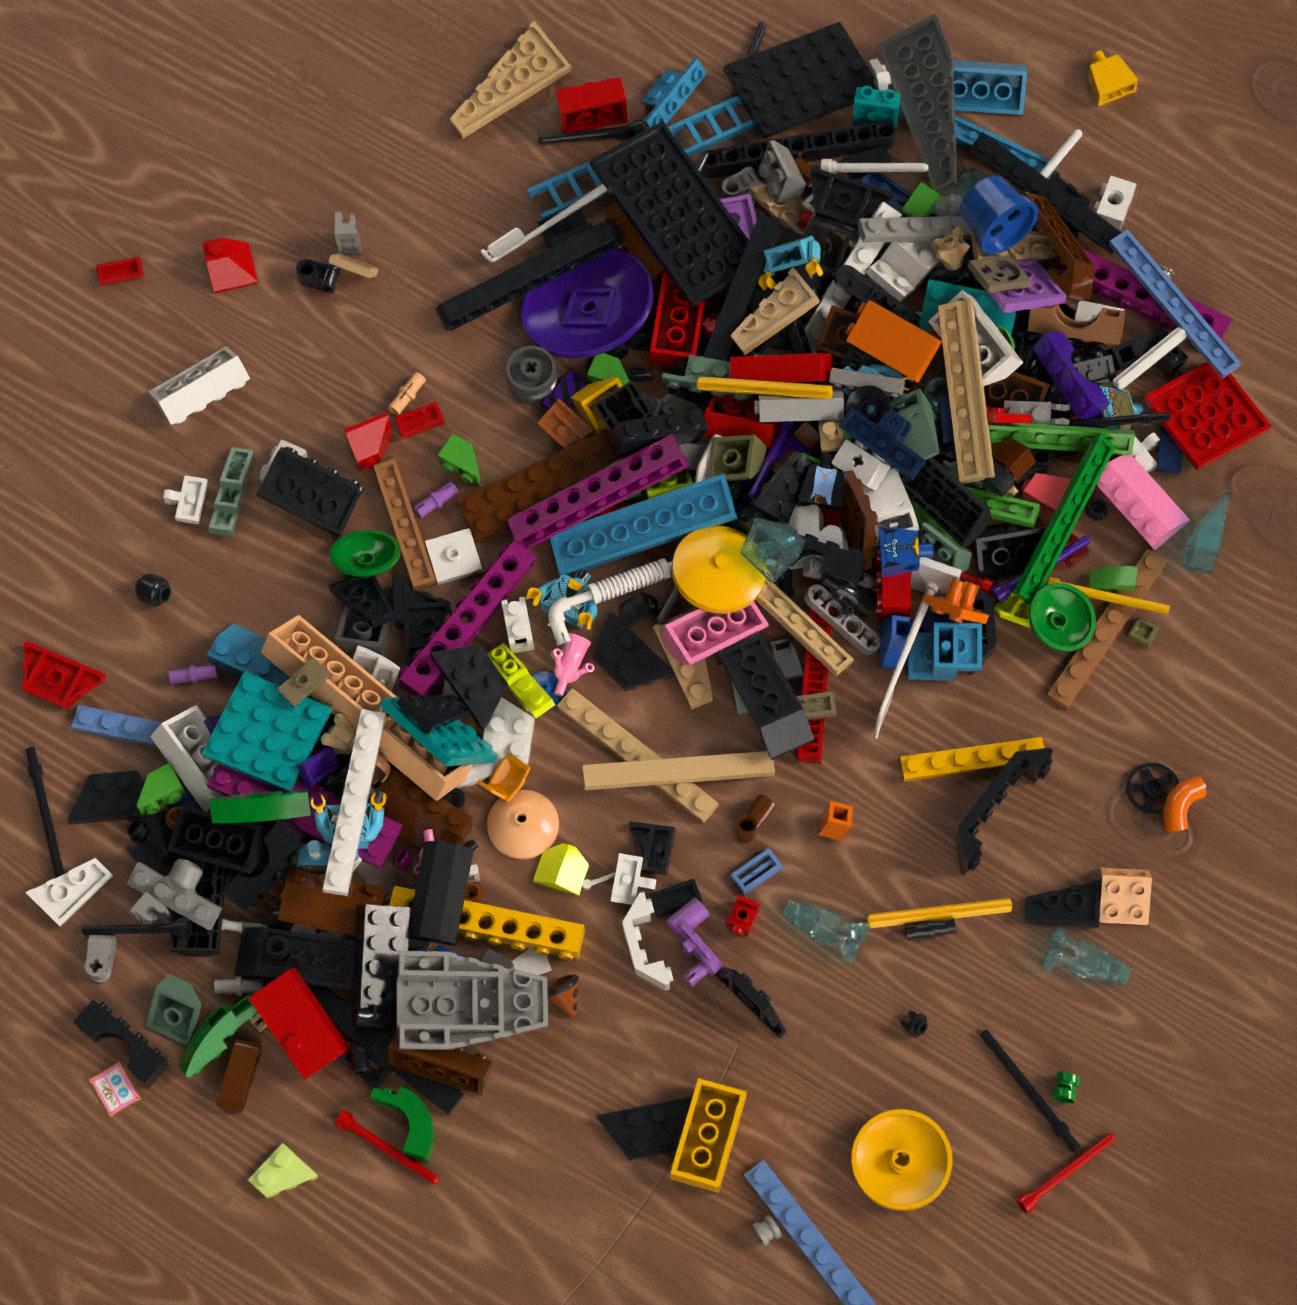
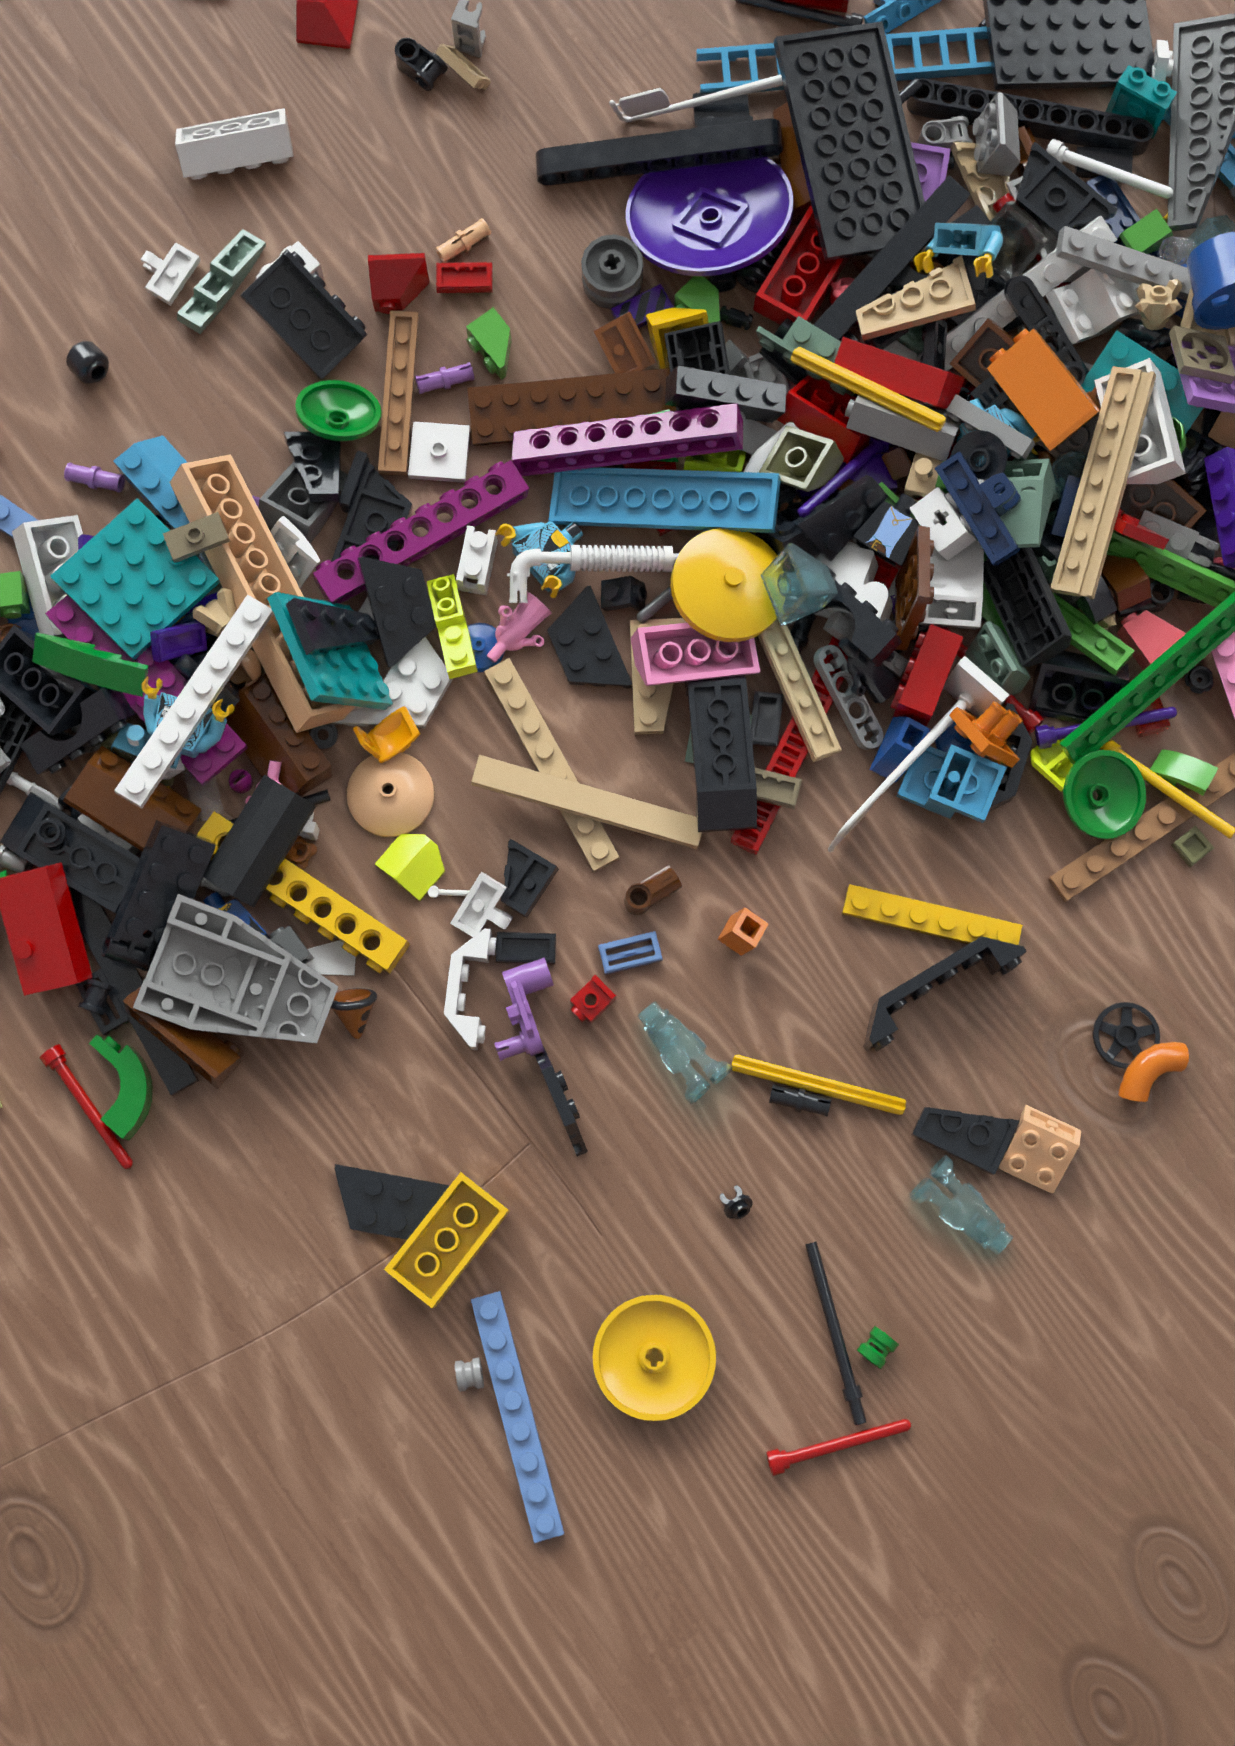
camera: 20 degrees right, 10 degrees up
(901, 551) = (947, 645): blue torso -> none

